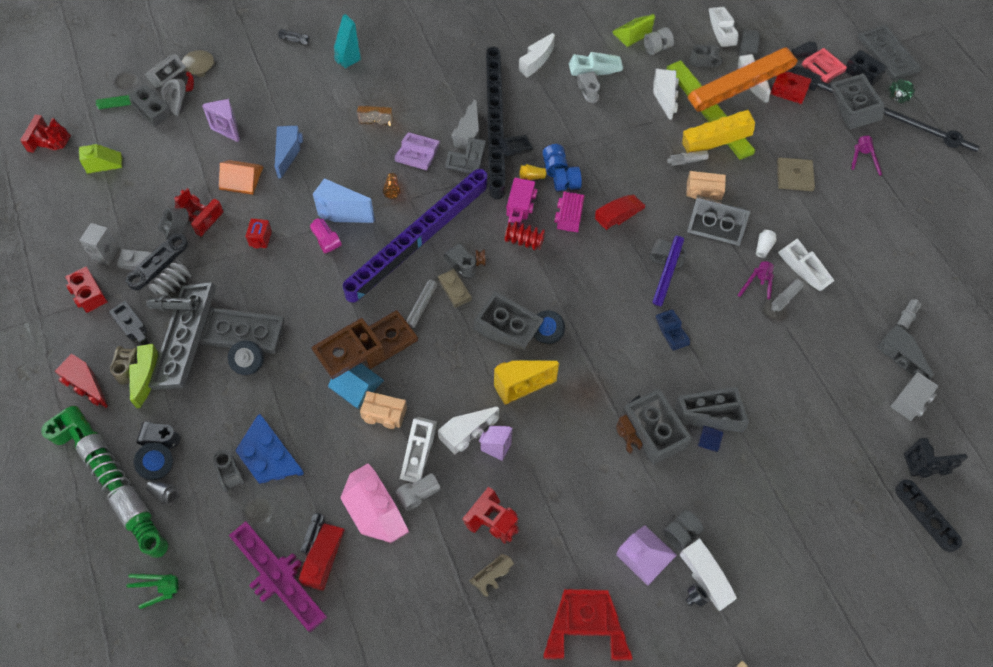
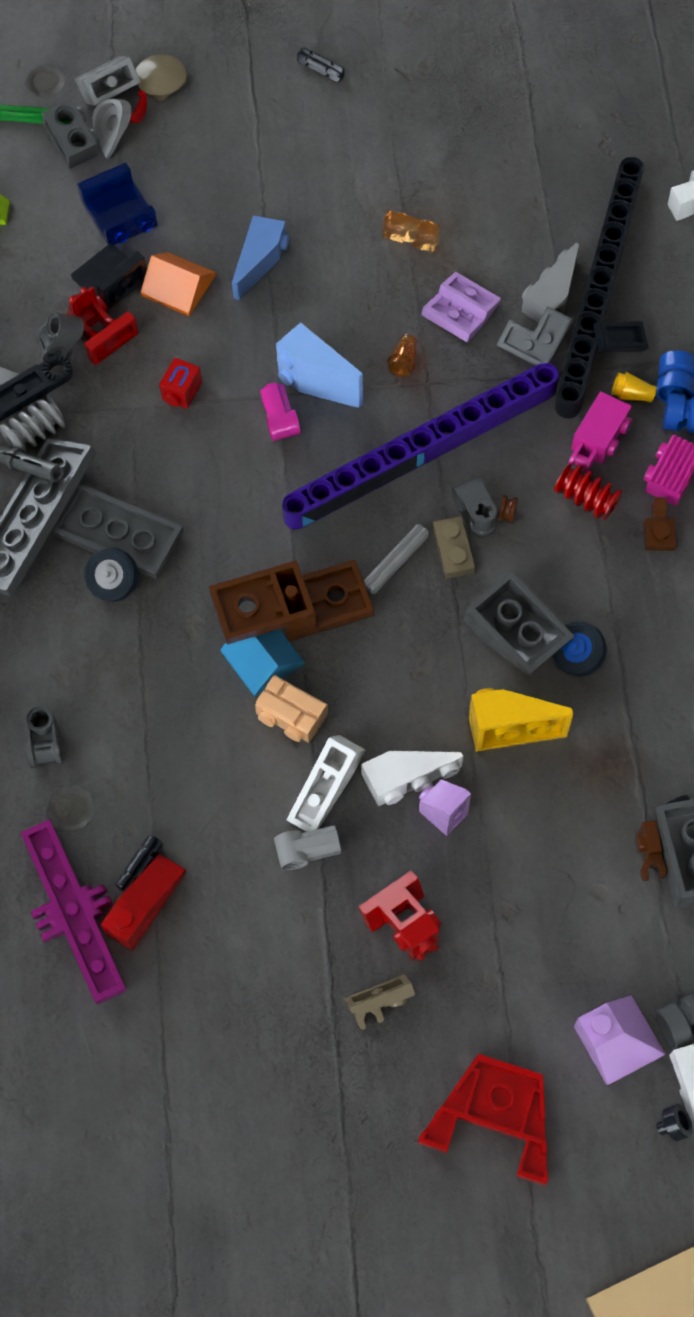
camera: 20 degrees right, 5 degrees up
(189, 140) = (116, 205): none -> clear blue panel
(198, 180) = (111, 274): none -> black bracket
(222, 119) = (173, 182): lavender slope -> none
(266, 454) = (103, 727): blue wing -> none
(346, 43) = (398, 100): teal slope -> none
(372, 506) = (234, 849): bright pink wedge -> none
(572, 248) = (659, 531): none -> reddish brown plate

